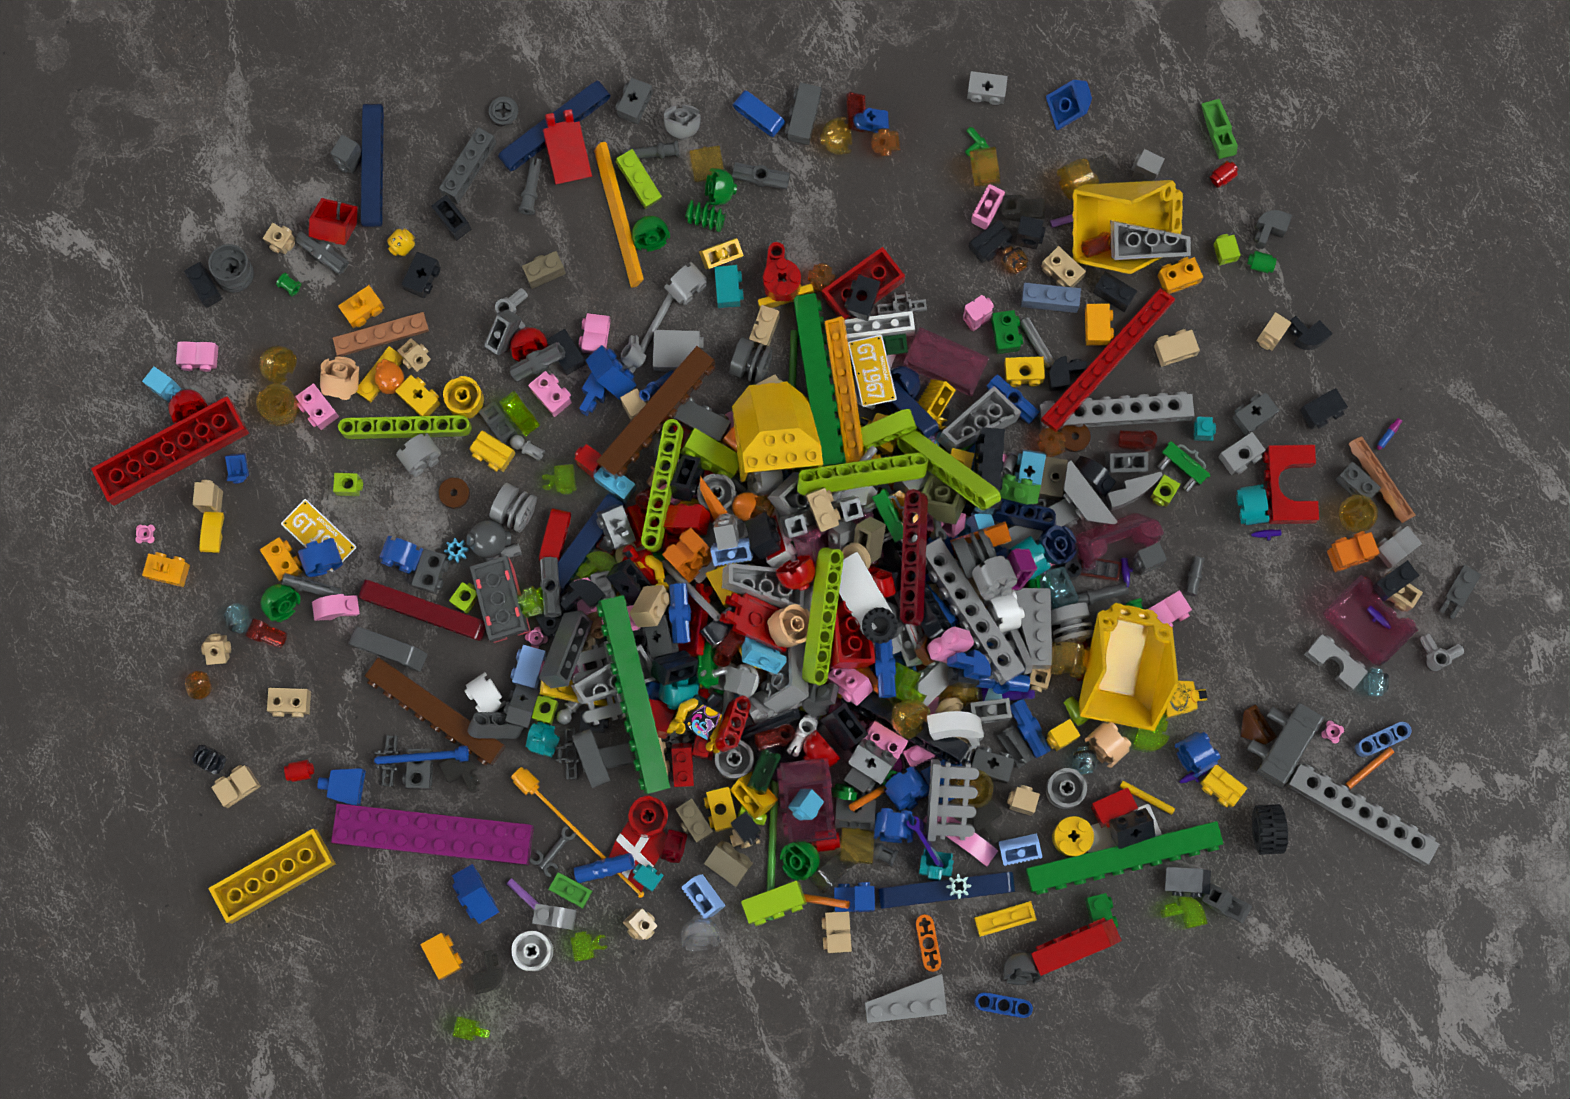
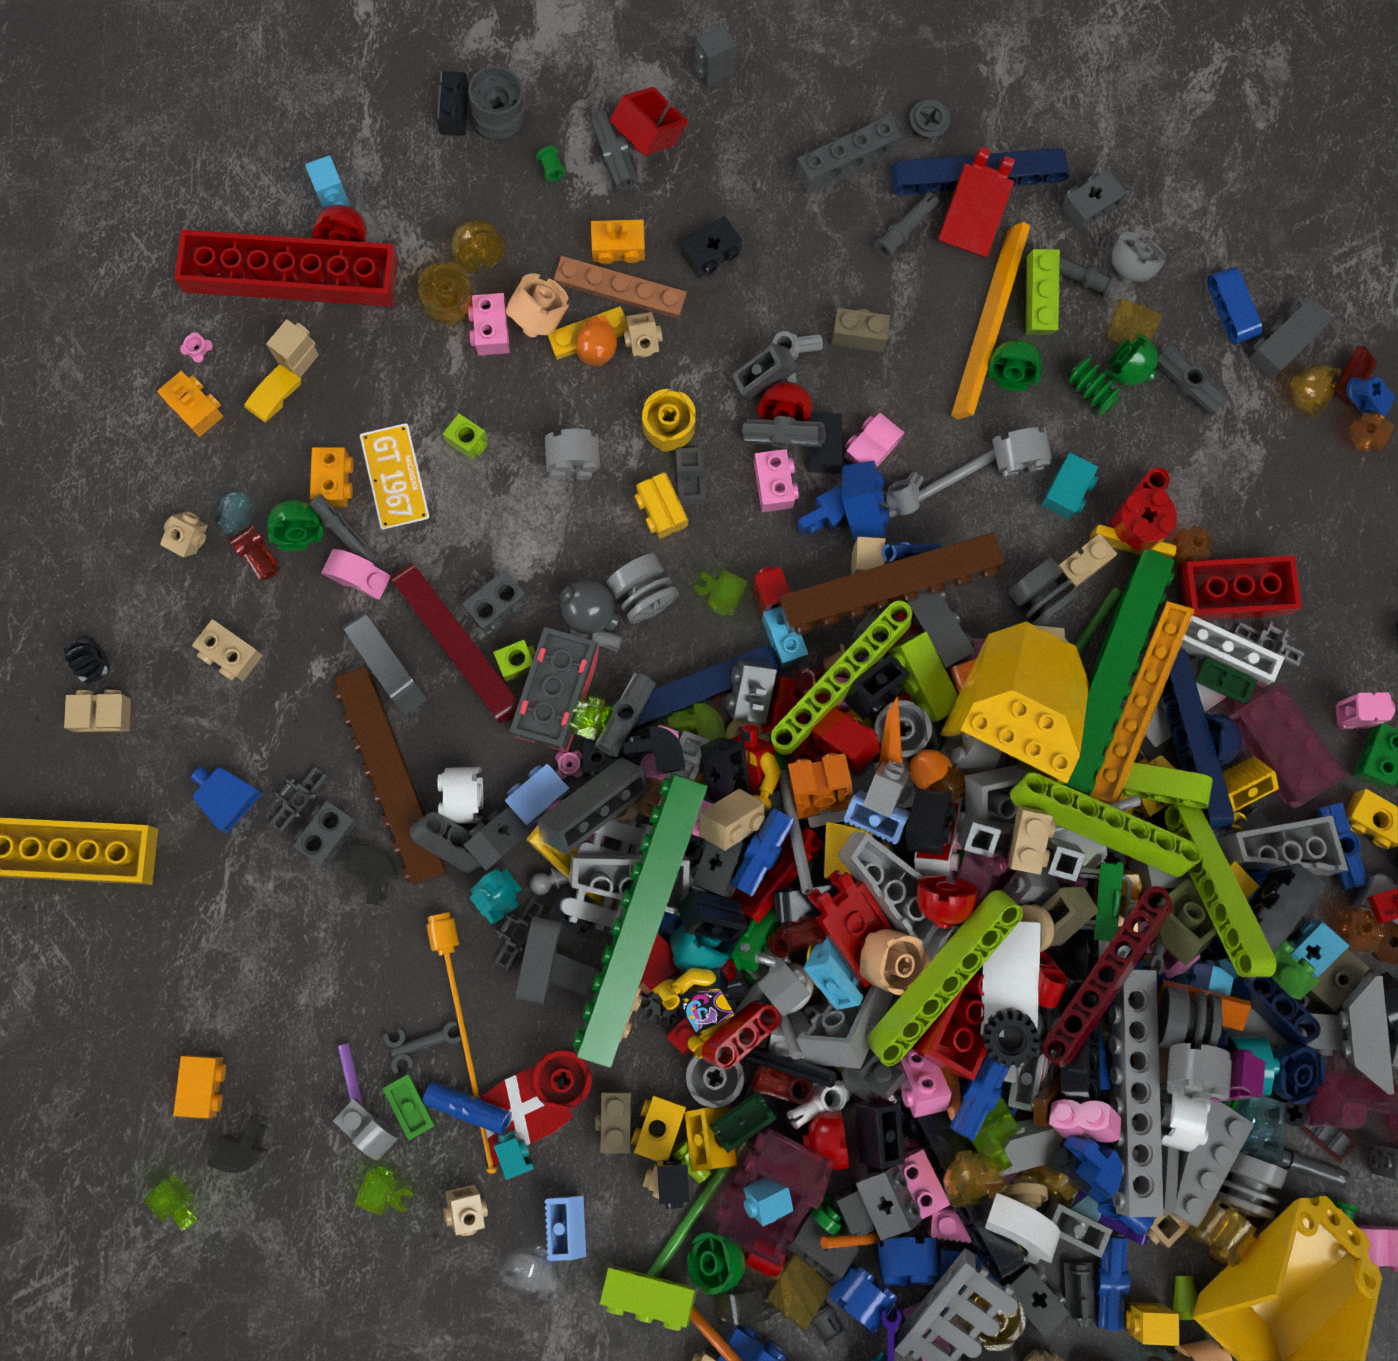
camera: 25 degrees right, 0 degrees up
(197, 355) = (392, 179): bright pink brick -> none
(198, 685) = (134, 562): clear orange head -> none
(237, 467) = (351, 336): blue bracket -> none
(279, 239) = (574, 104): tan brick -> none
(299, 771) = (183, 742): red brick -> none
(320, 557) = (375, 502): blue brick -> none
(372, 165) = (736, 88): dark blue beam -> none
(397, 422) = (572, 401): lime beam -> none
(401, 242) = (712, 195): yellow head -> none
(401, 554) = (473, 559): blue brick -> none
(410, 388) = (612, 372): yellow brick -> none
(432, 834) = (288, 927): magenta brick -> none
(450, 485) = (578, 516): reddish brown piece -> none
(451, 217) = (790, 202): black brick -> none
(452, 547) = (540, 589): medium azure gear -> none
(460, 753) = (383, 848): blue piece -> none
(474, 894) = (287, 1035): blue brick -> none
(517, 442) = (699, 515): light grey pin -> none
(519, 413) = (722, 480): clear neon green brick -> none
(521, 953) = (300, 1142): white brick -> none
(545, 717) = (511, 864): lime brick -> none
(555, 534) = (672, 653): red beam -> none
(673, 347) = (957, 518): light grey brick -> none
(674, 846) = (571, 1136): dark red bracket -> none
(682, 764) = (646, 1041): red brick -> none
(721, 253) = (1087, 441): yellow brick -> none
(729, 863) = (624, 1205): dark tan brick -> none
(867, 287) = (1248, 594): black brick -> none
(872, 370) = (1189, 700): yellow sticker -> none
(1126, 571) = (1357, 1155): dark purple helmet -> none

